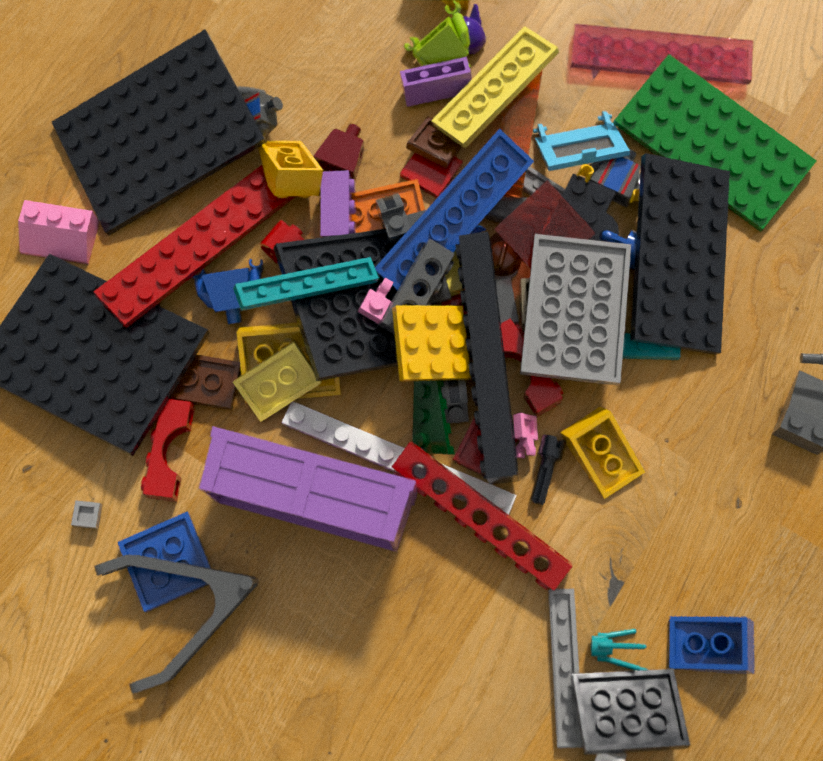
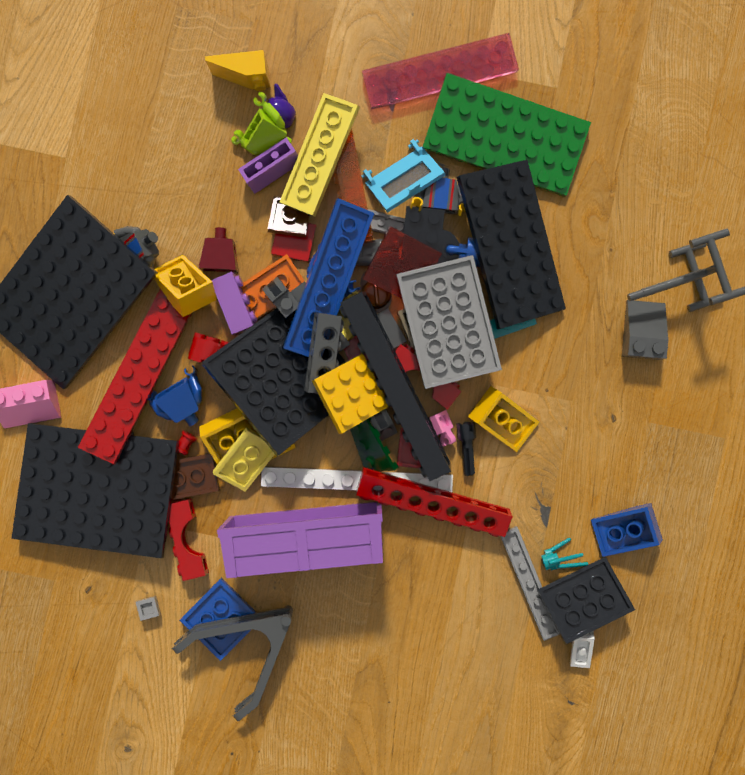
camera: 25 degrees left, 15 degrees up
(216, 340) = (185, 442): none -> red bush
(305, 283) = (238, 386): teal plate -> none
(375, 303) = (296, 375): bright pink plate -> none

